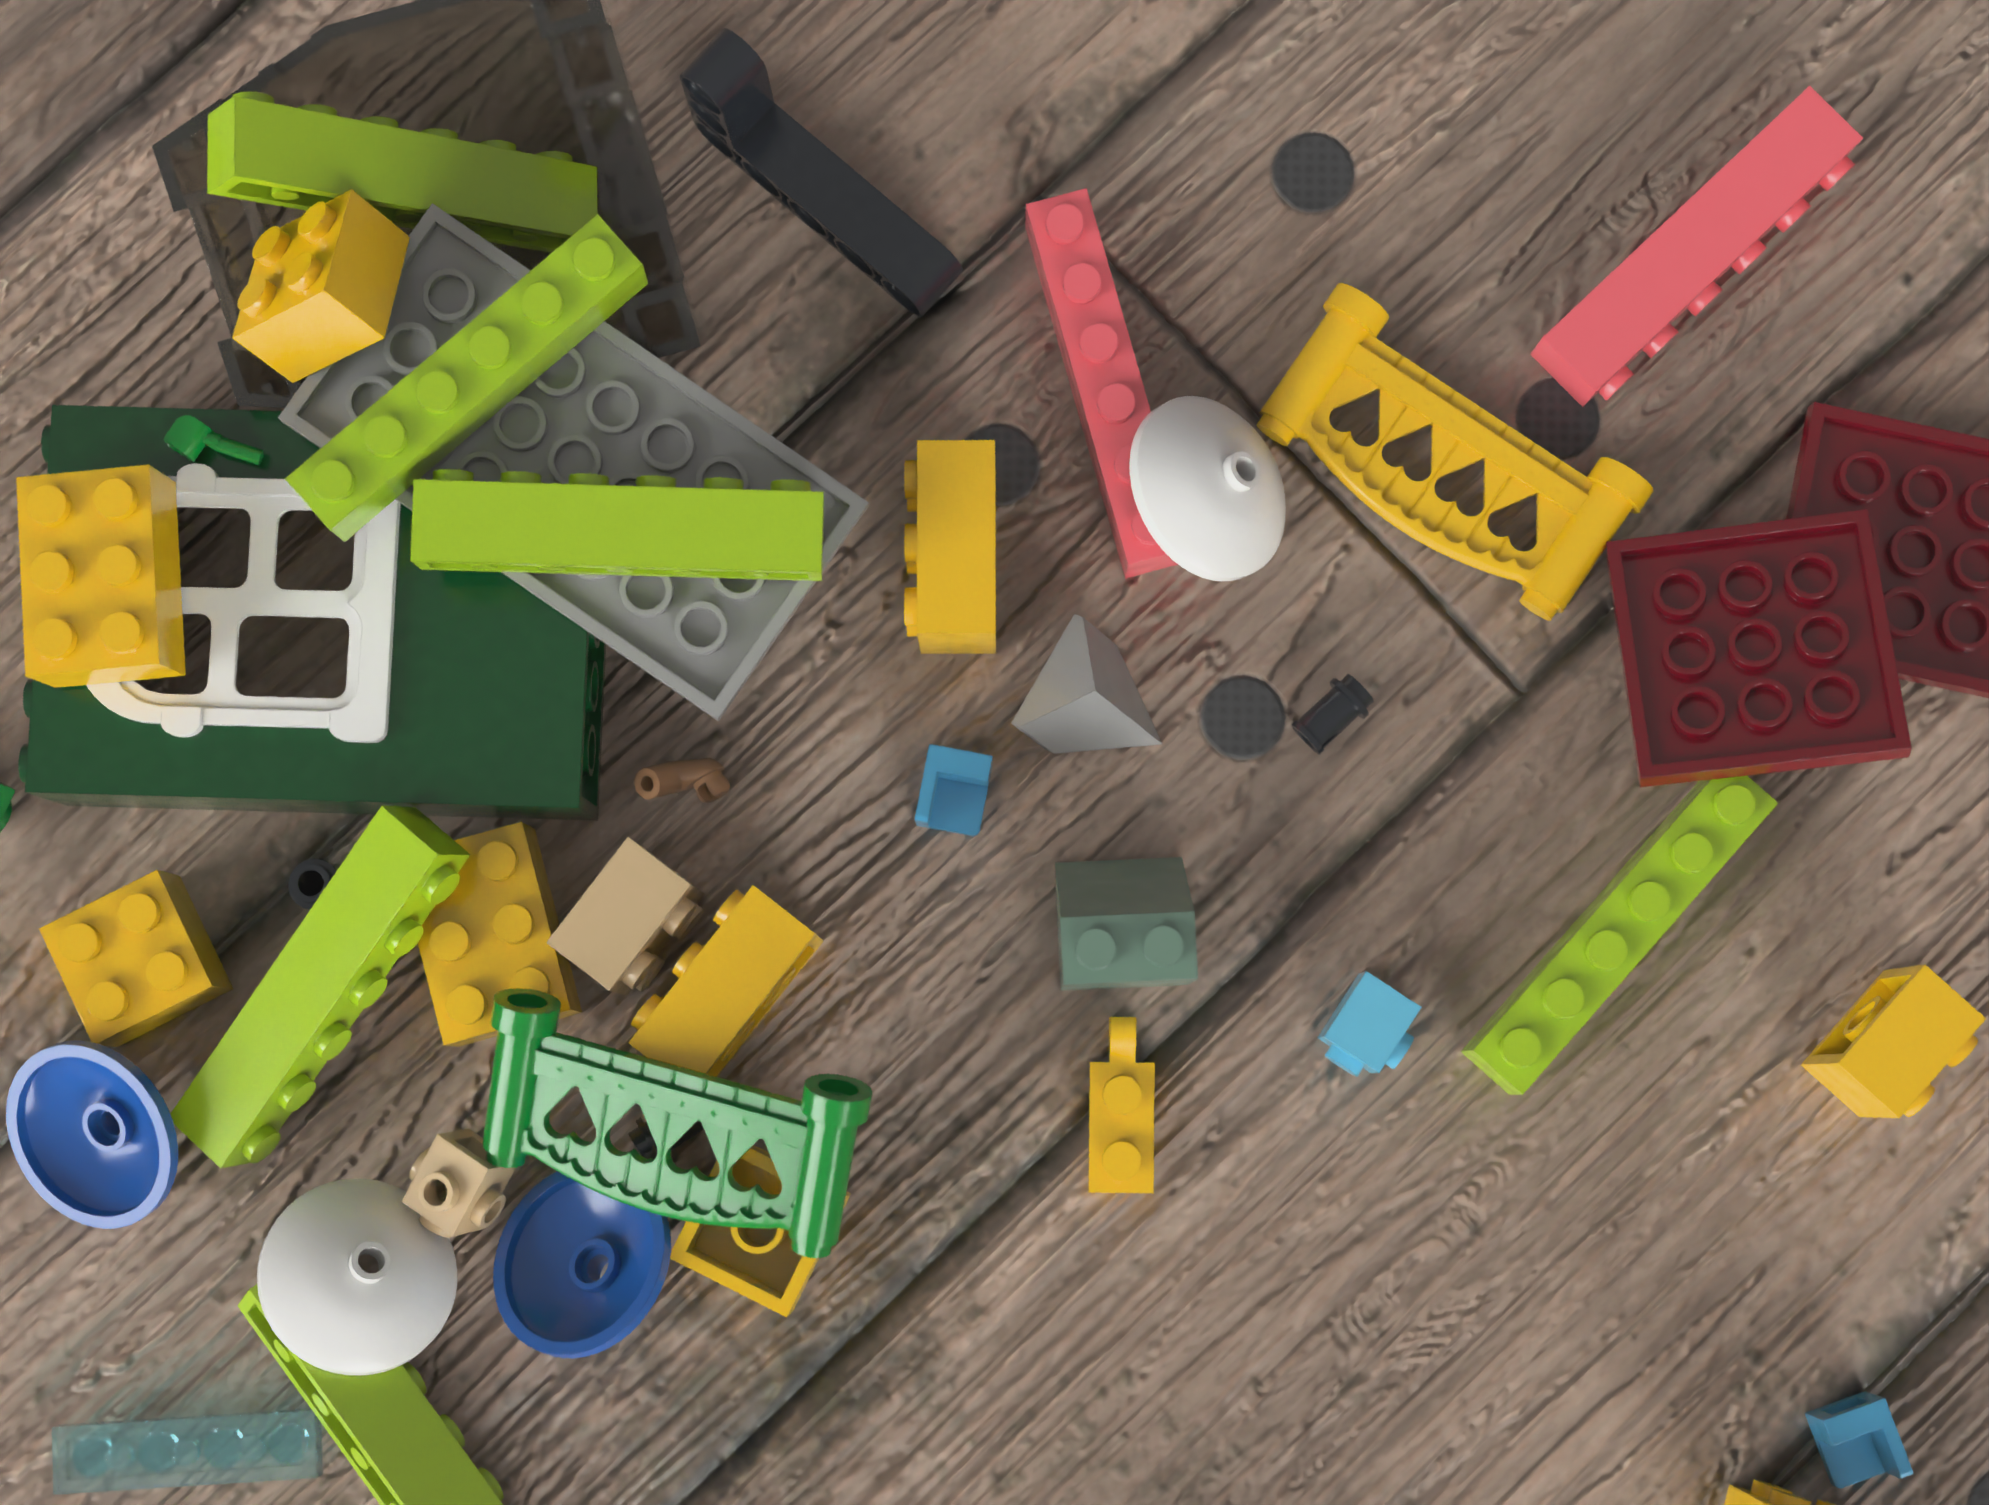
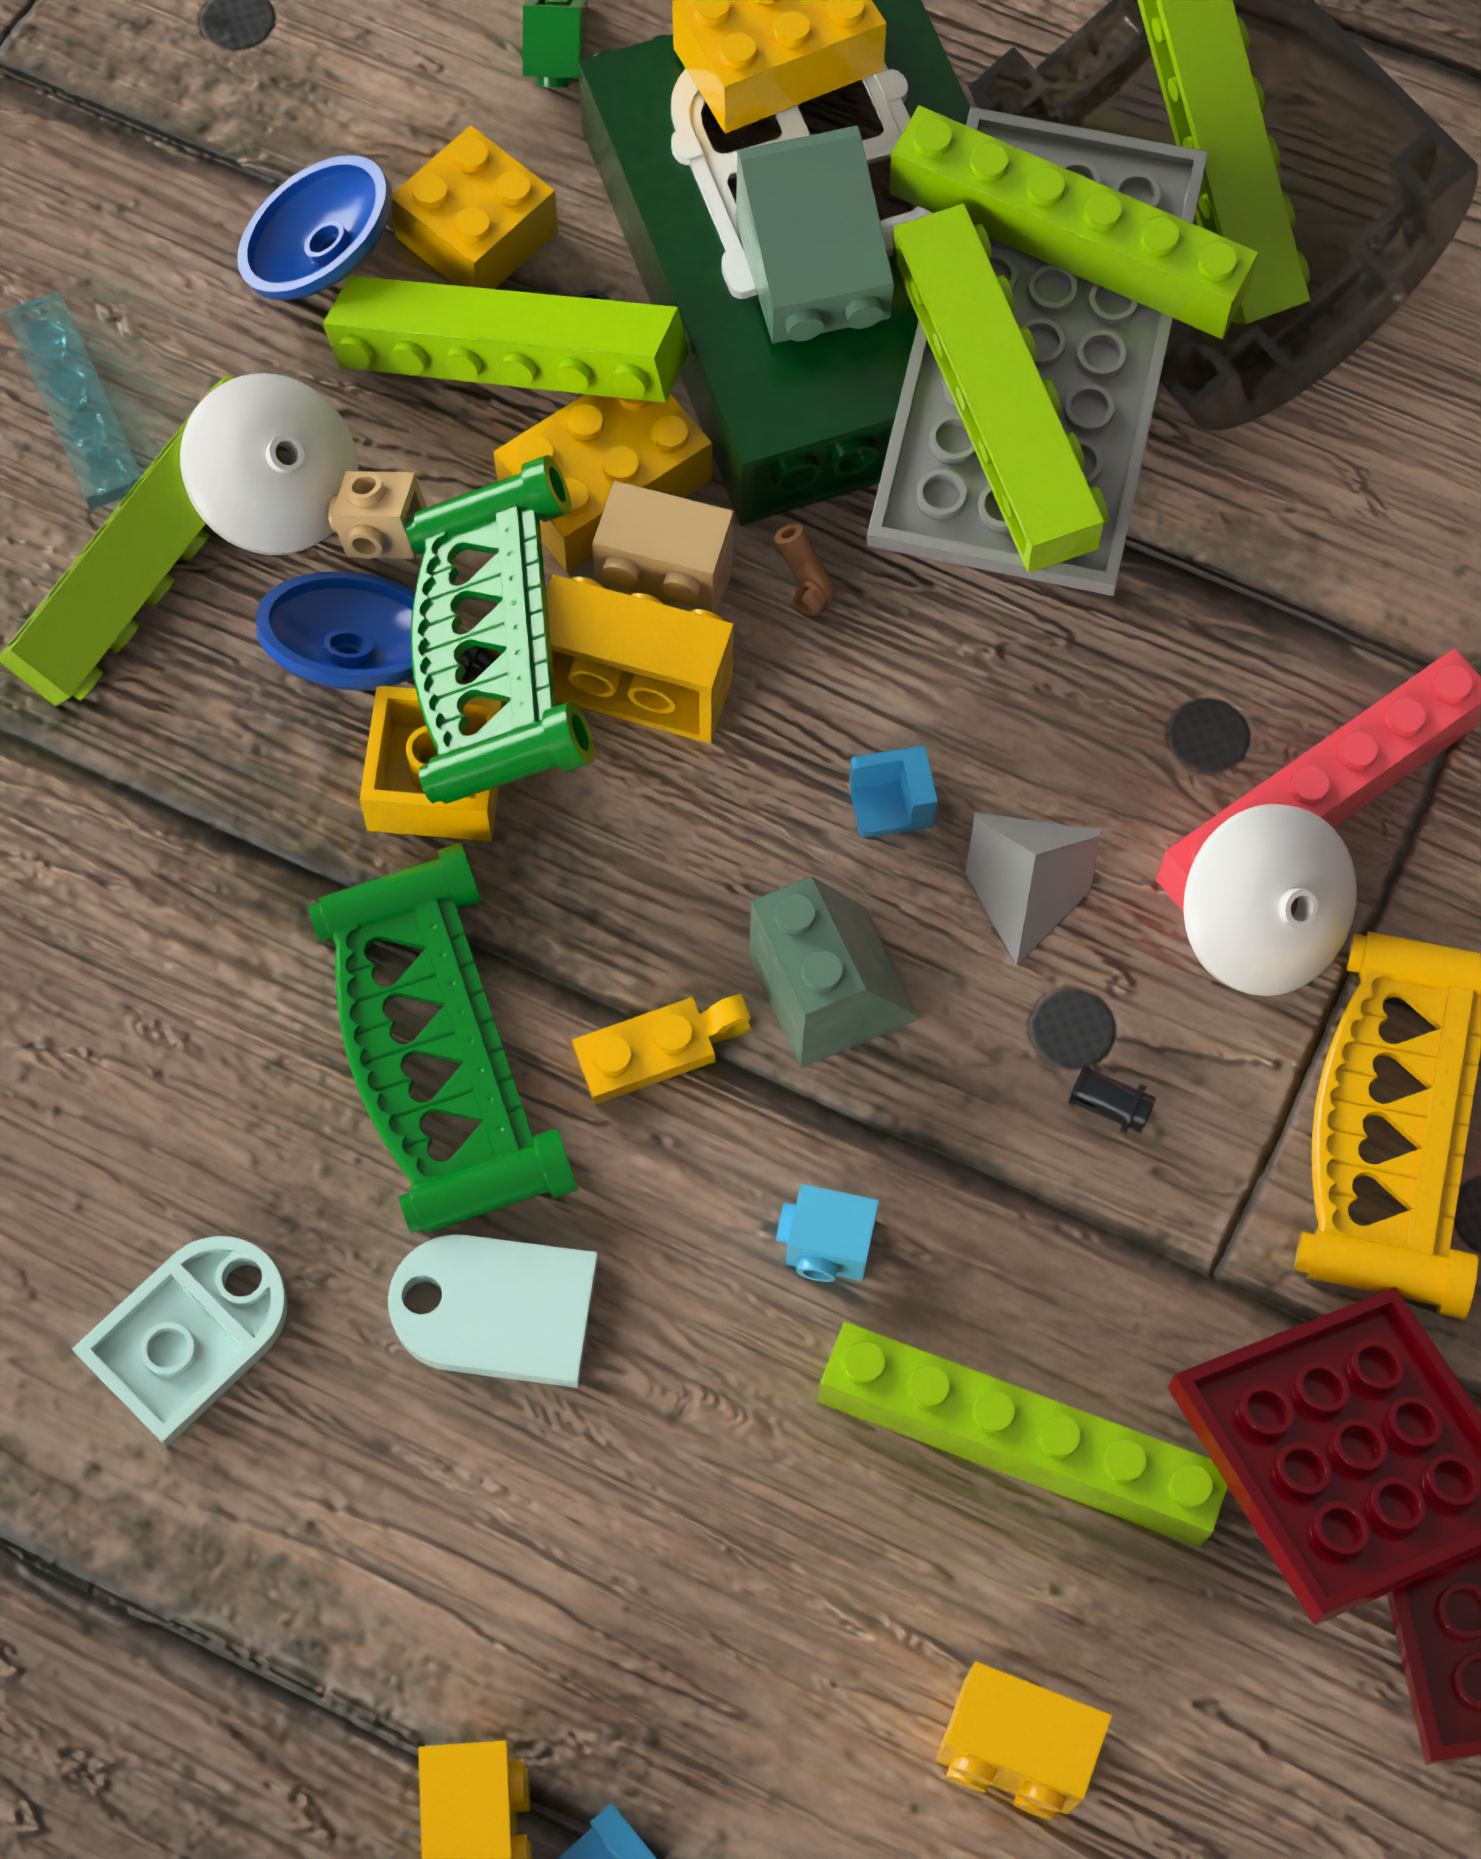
camera: 65 degrees right, 15 degrees down
(191, 435) = (925, 66): green hand -> none
(321, 286) = (1096, 88): yellow brick -> none
(372, 641) = (813, 235): none -> sand green slope
(738, 116) = (1392, 470): black beam -> none
(952, 546) = (1113, 703): yellow brick -> none
(1183, 1301) = (501, 1157): none -> green piece
(1323, 1350) = (501, 1309): none -> light aqua tile

